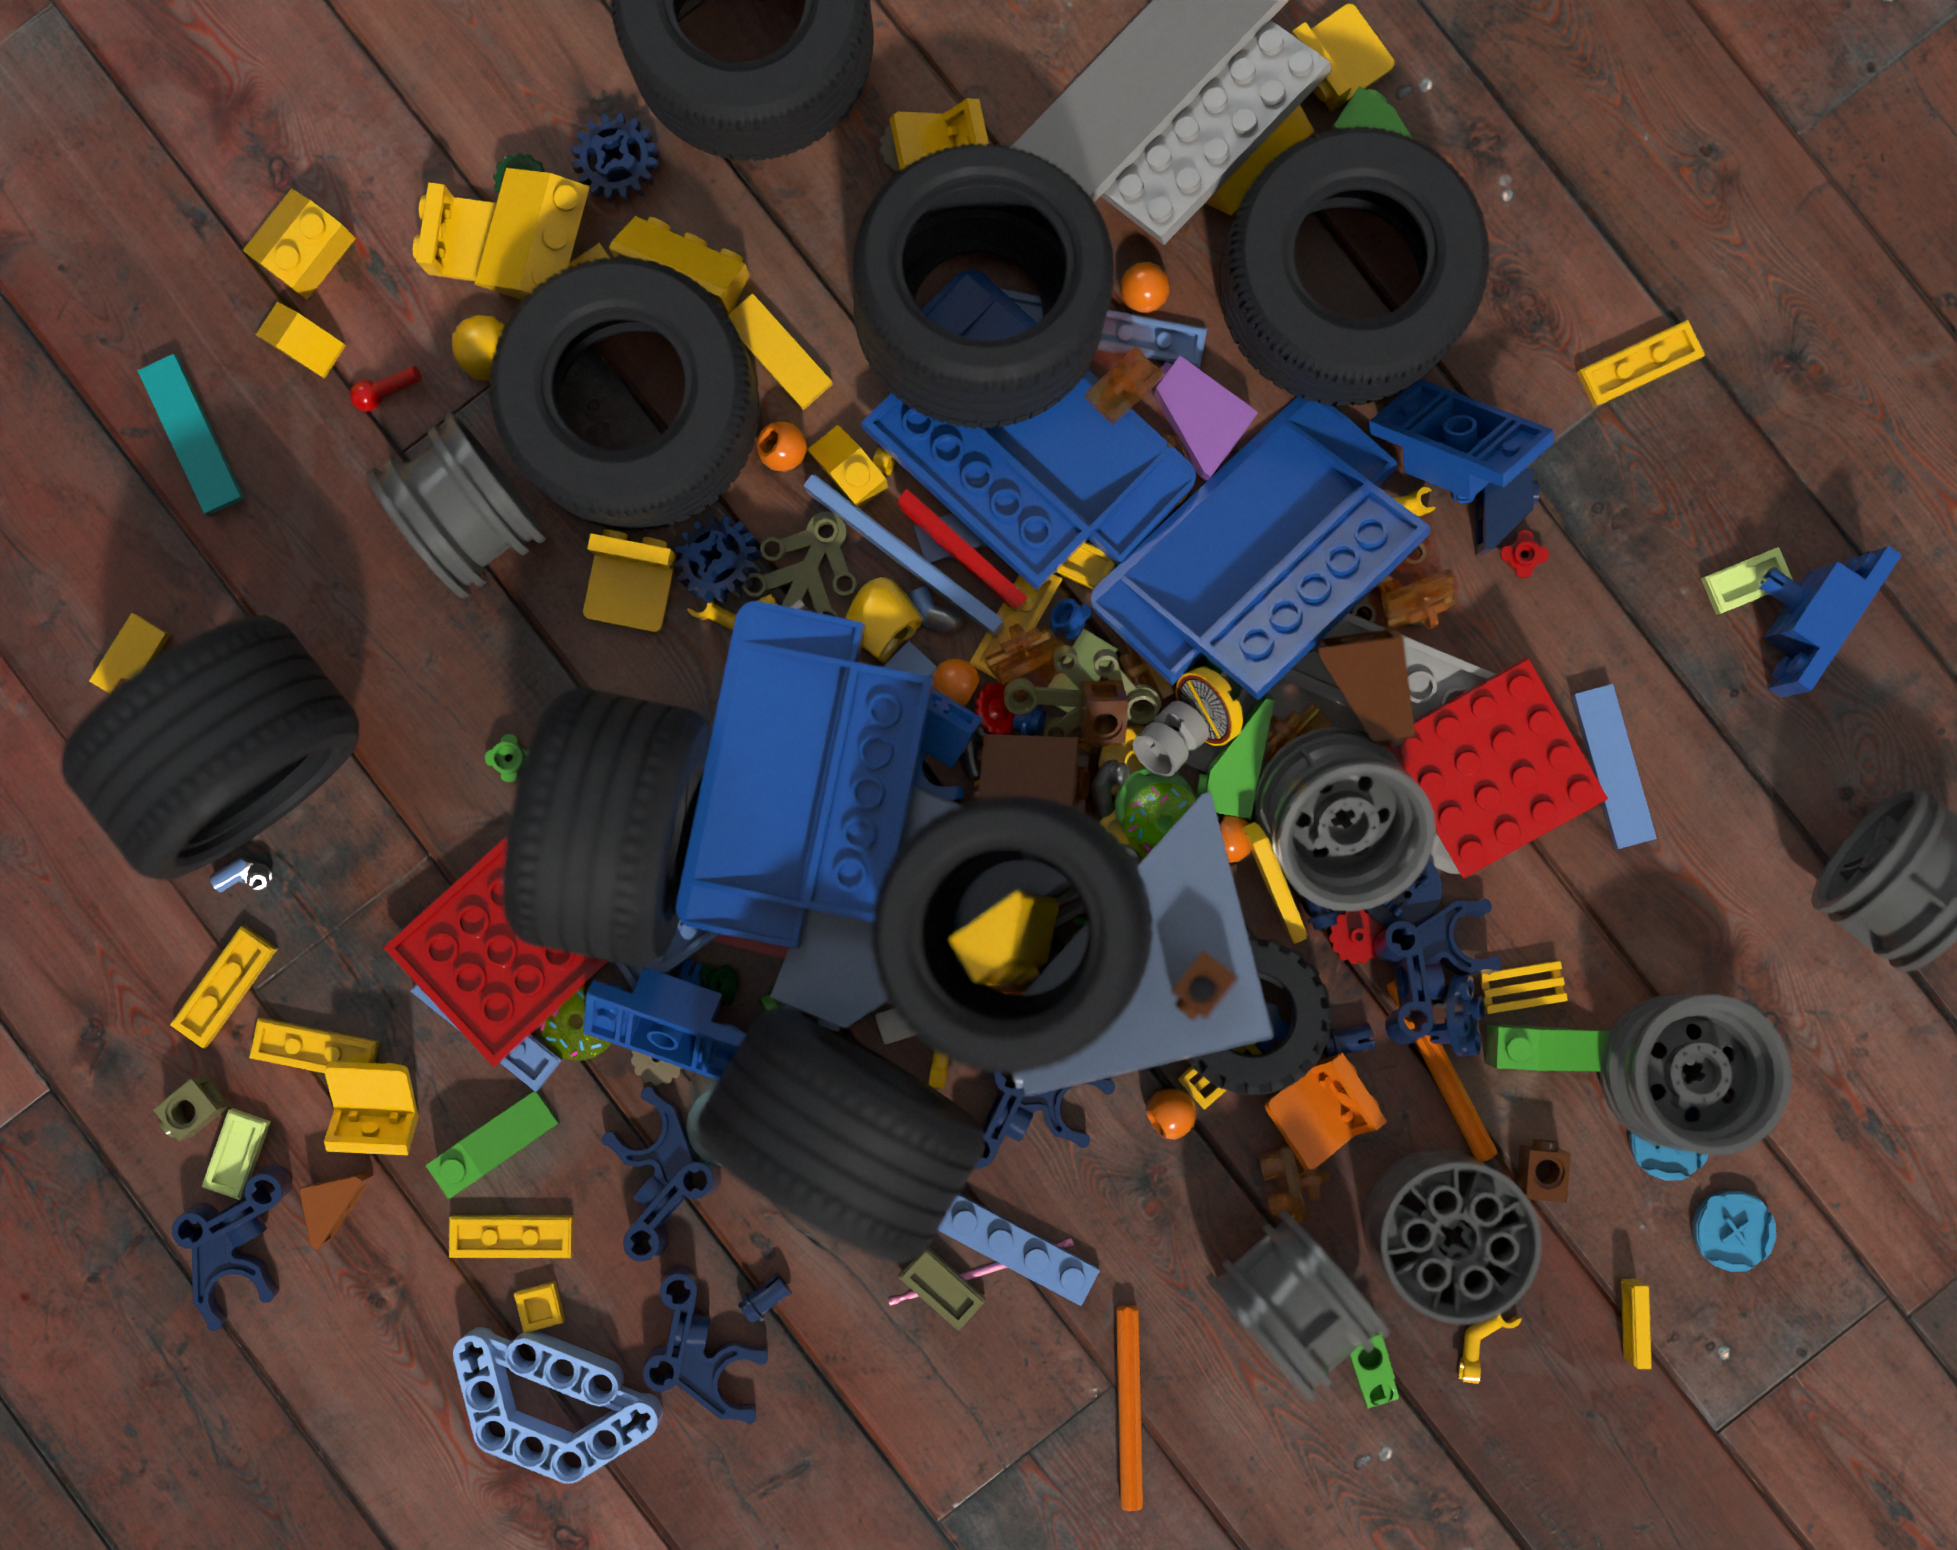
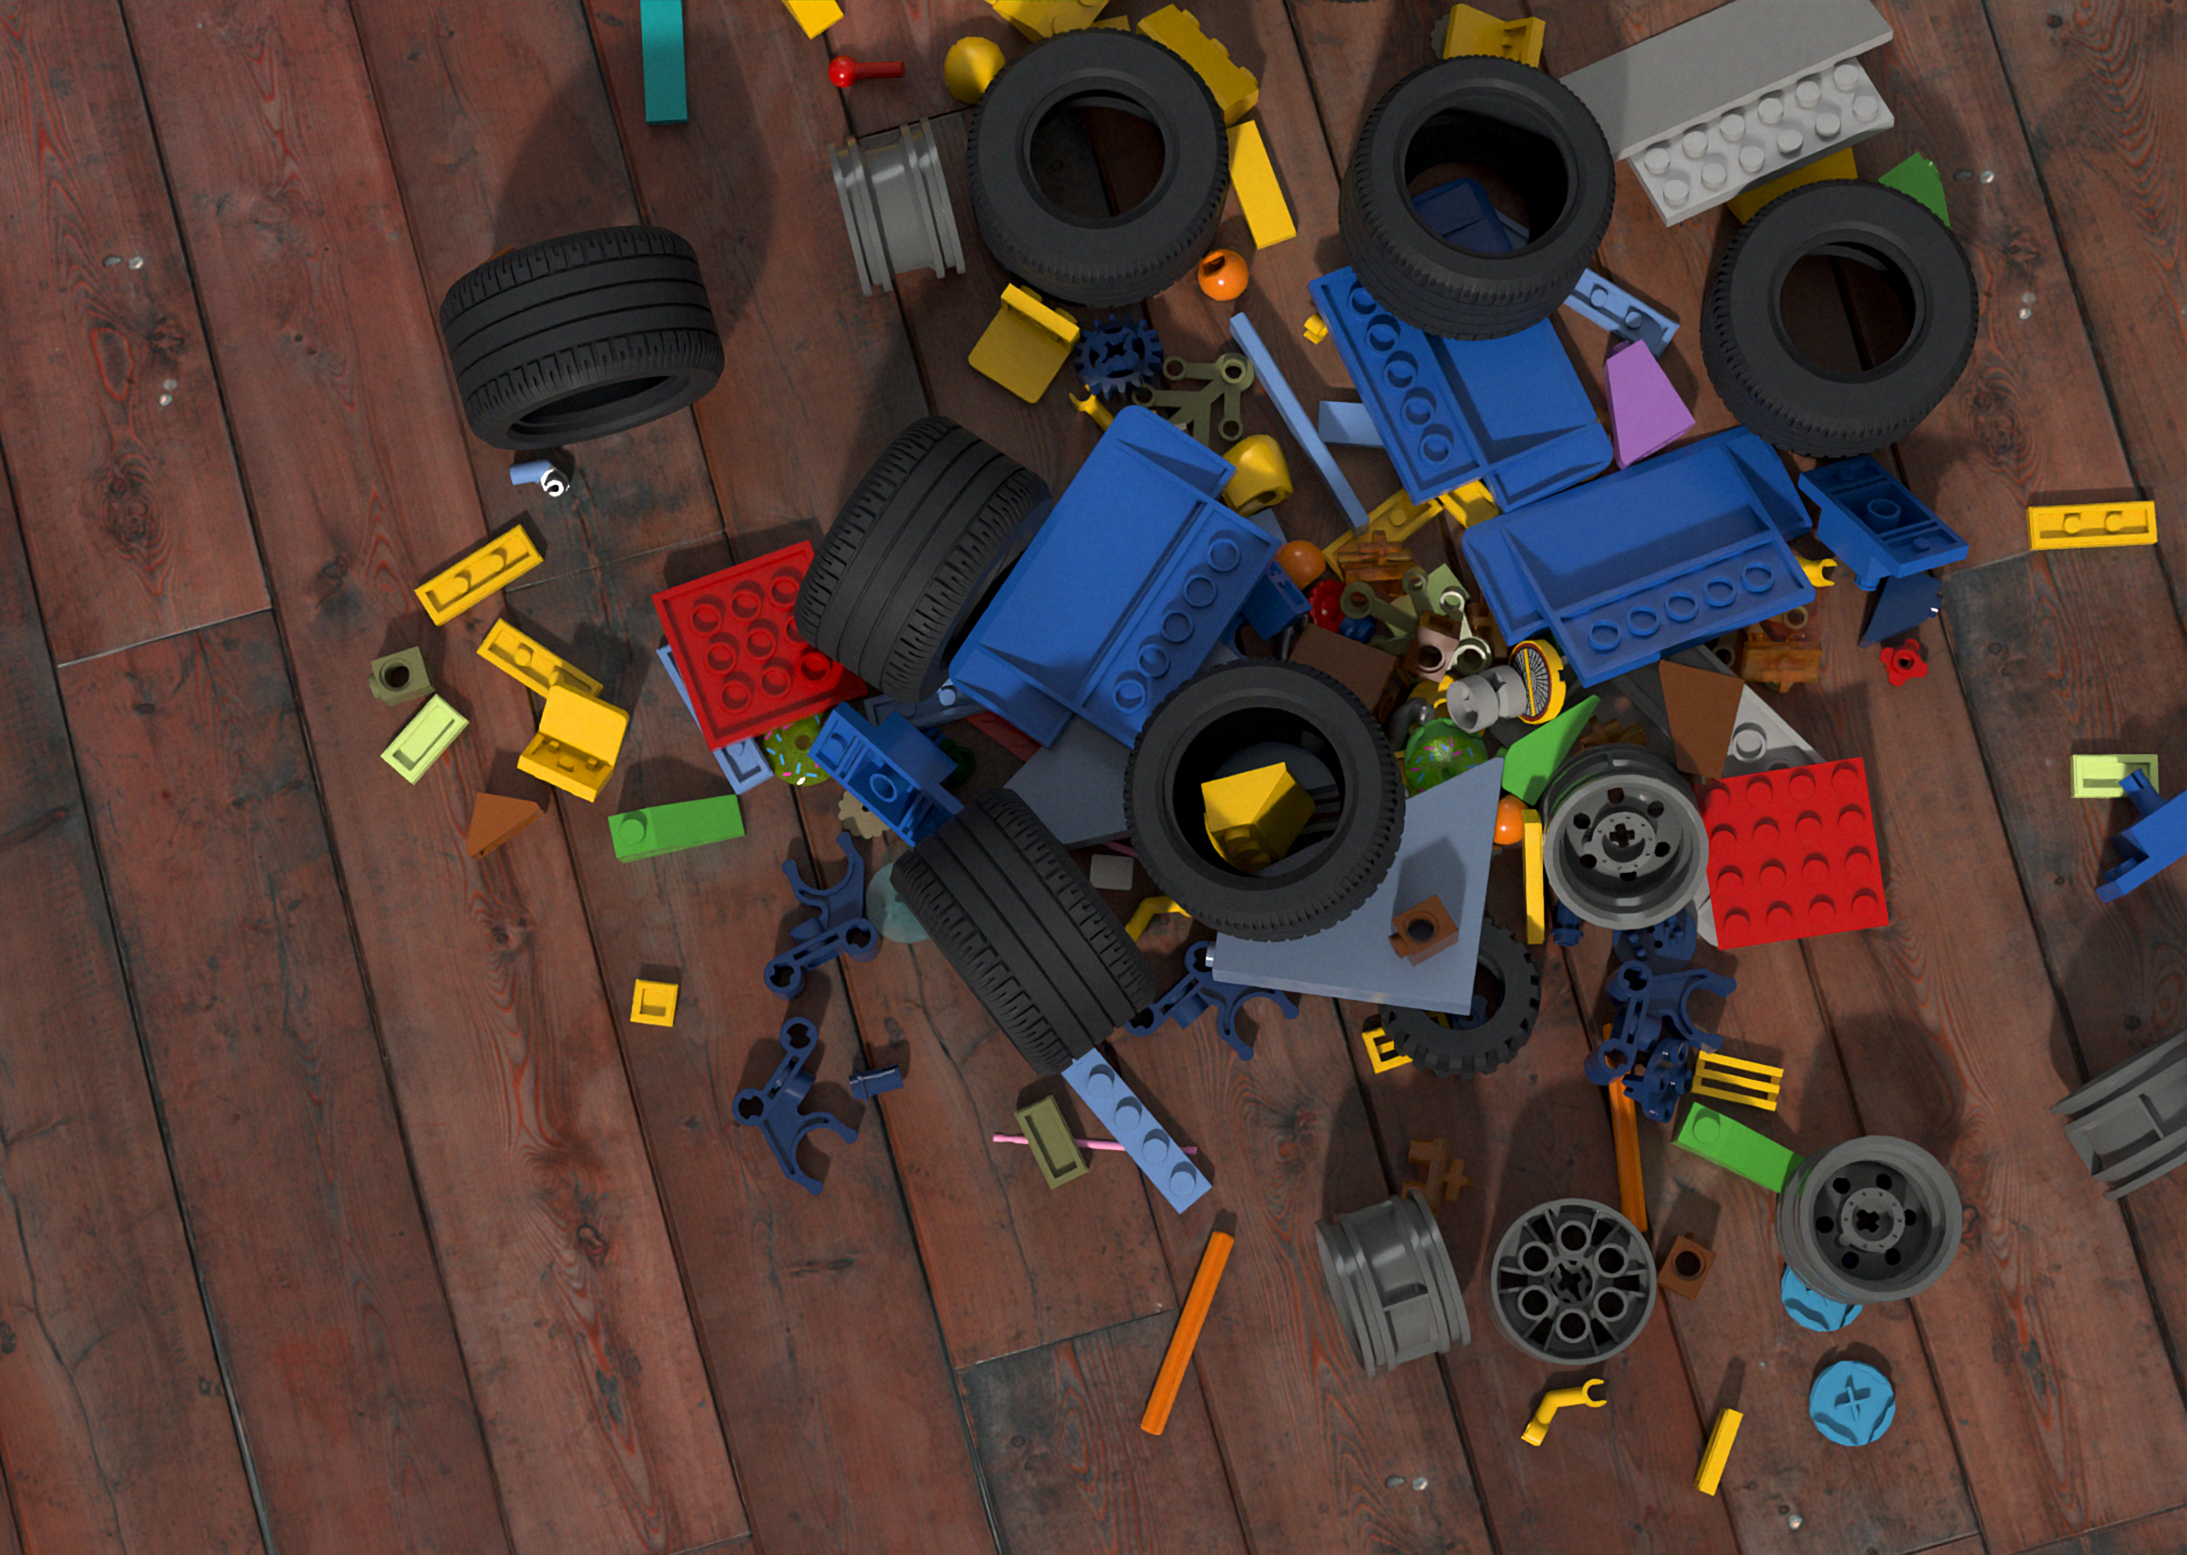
camera: 25 degrees right, 5 degrees down
(132, 650) = (521, 225): yellow tile -> none
(221, 1233) = (370, 820): dark blue piece -> none
(497, 757) = (843, 455): bright green plate -> none
(511, 1236) = (655, 924): yellow tile -> none
(556, 1441) = (637, 1061): light blue piece -> none
(848, 467) = (1279, 320): yellow slope -> none
(935, 617) = (1305, 496): flat silver arm -> none
(961, 551) = (1356, 442): red tile -> none
(1069, 618) = (1434, 547): blue plate -> none
(1124, 385) = (1576, 345): clear orange hips -> none
(1144, 287) = (1634, 261): orange piece -> none
(1171, 1113) = (1342, 1061): orange piece -> none
(1324, 1110) = (1493, 1117): orange bracket -> none
(1349, 1040) = (1541, 1062): dark blue pin -> none
(1353, 51) = (1922, 117): yellow bracket -> none
(1355, 936) = (1590, 965): red piece -> none
(1374, 1374) = (1440, 1388): bright green leg -> none
(1614, 766) = (1910, 903): medium blue tile -> none

